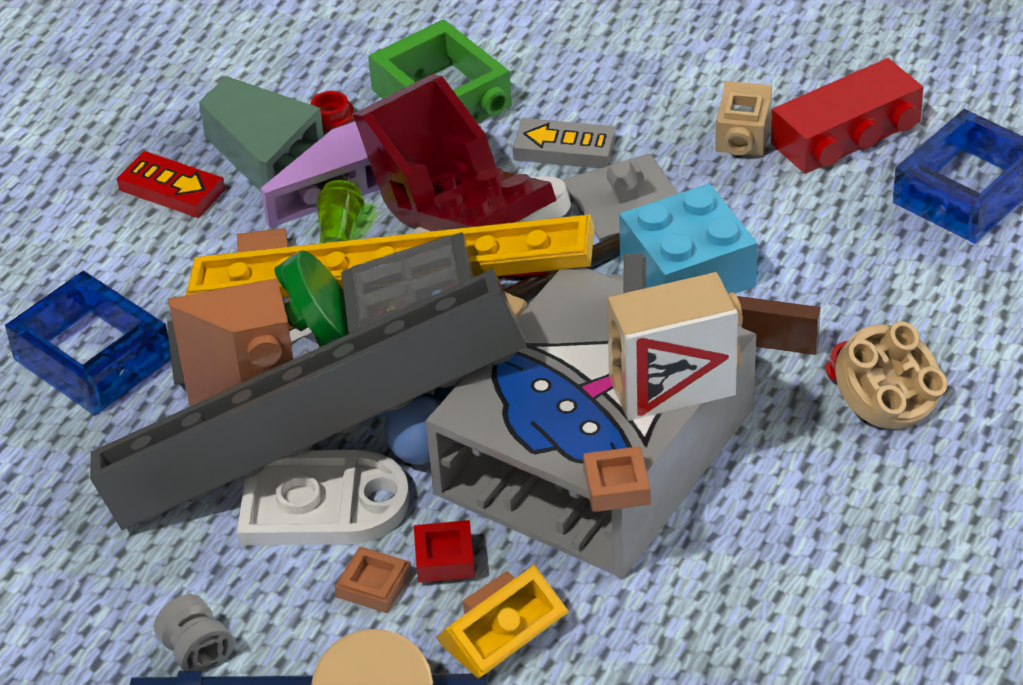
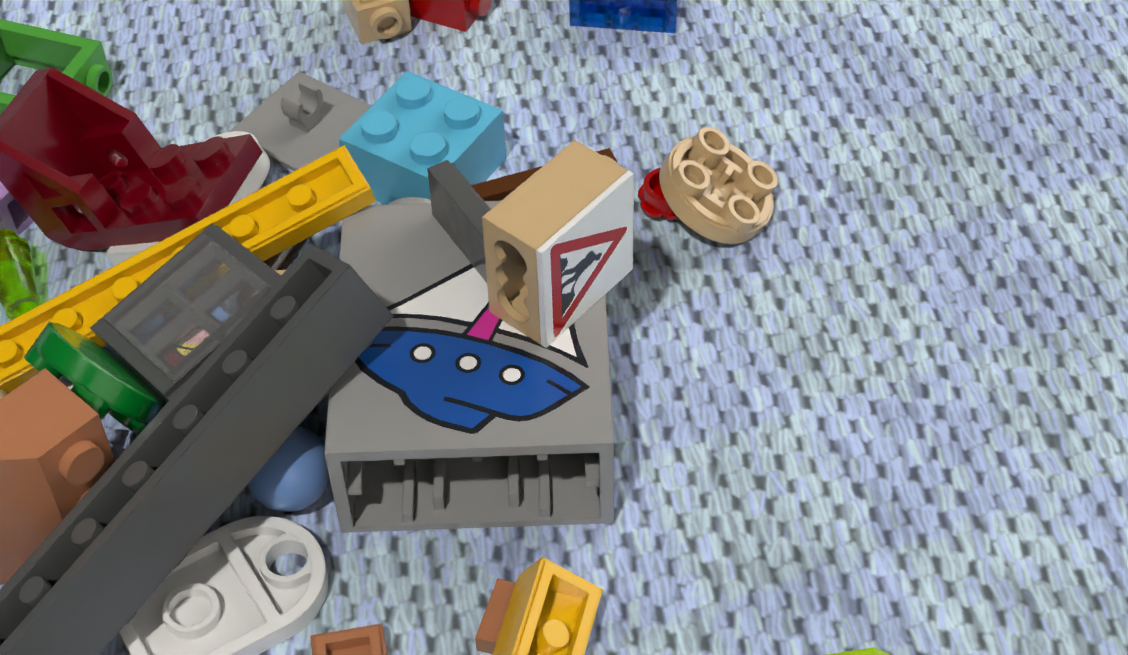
camera: 35 degrees left, 5 degrees up
(443, 551) = (411, 592): red plate -> none
(564, 143) = (202, 96): light grey tile -> none
(616, 479) = (592, 417): nougat tile -> none

